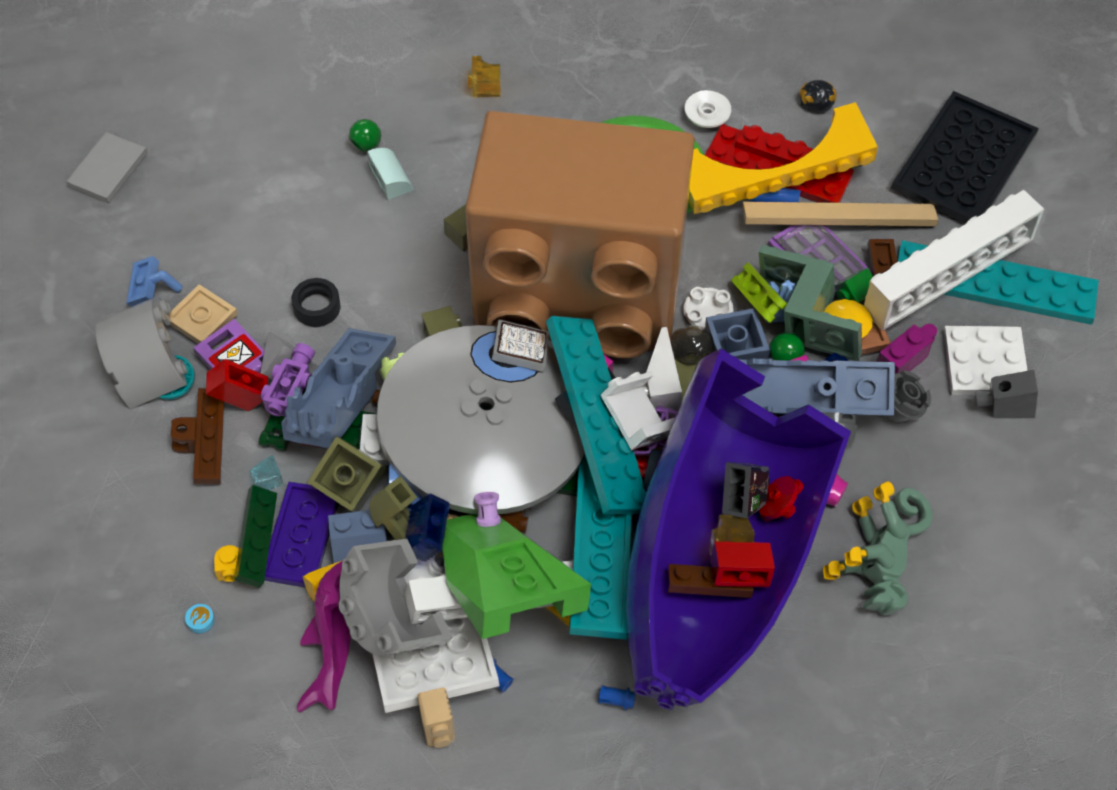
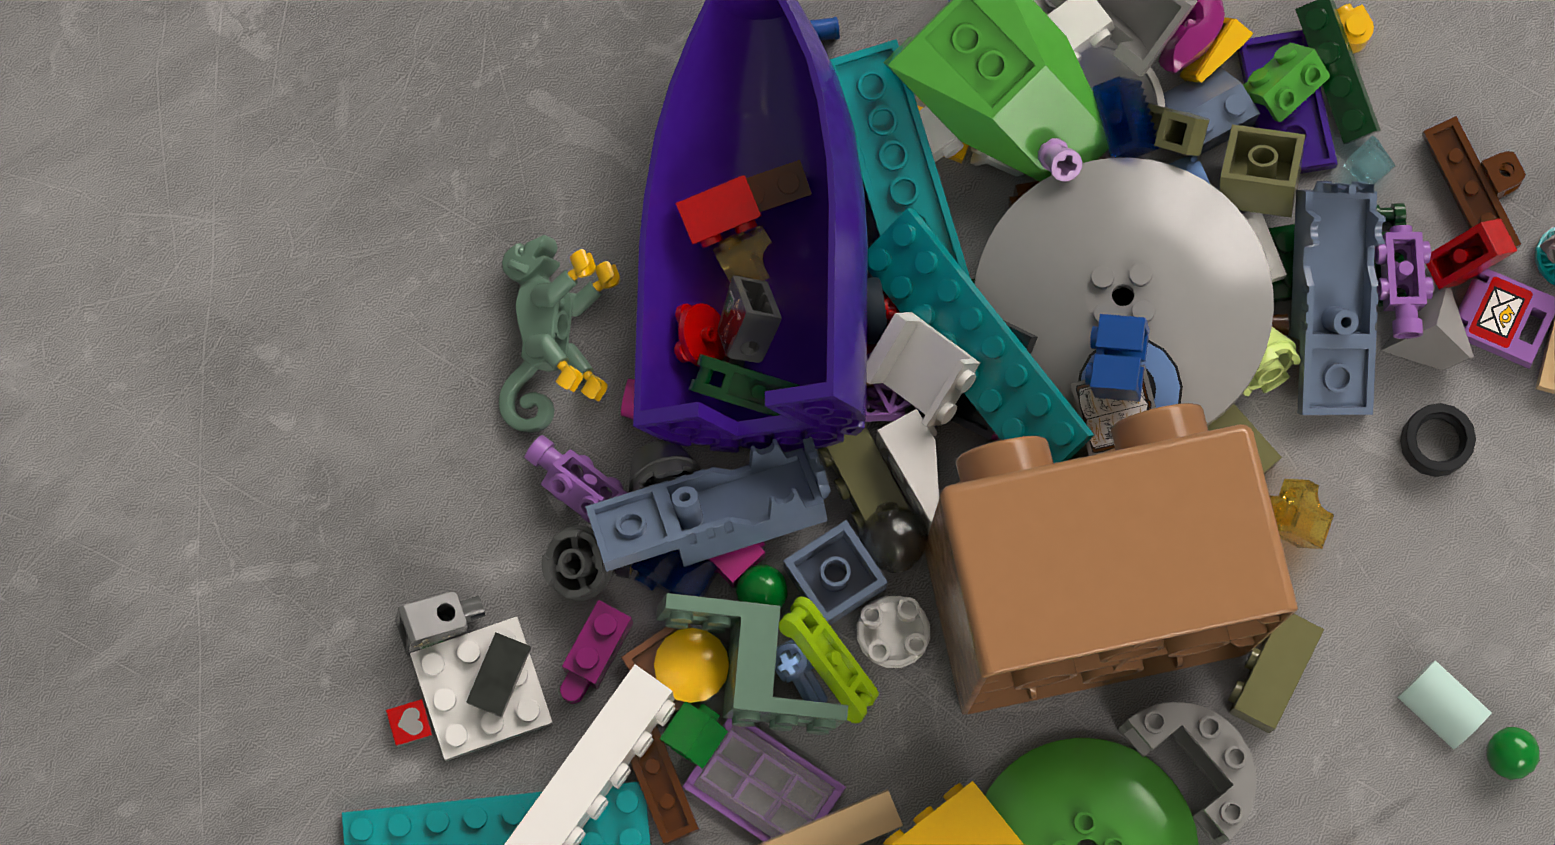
camera: 160 degrees right, 20 degrees up
(298, 535) = (1287, 80): none -> bright green bracket
(429, 285) = (1300, 514): none -> clear yellow brick
(508, 357) = (1120, 349): none -> blue piece
(762, 452) = (739, 384): none -> dark green plate
(887, 448) = (568, 481): none -> medium lavender brick
(975, 353) = (498, 674): none -> pearl dark grey tile
(1039, 355) = (409, 723): none -> red tile

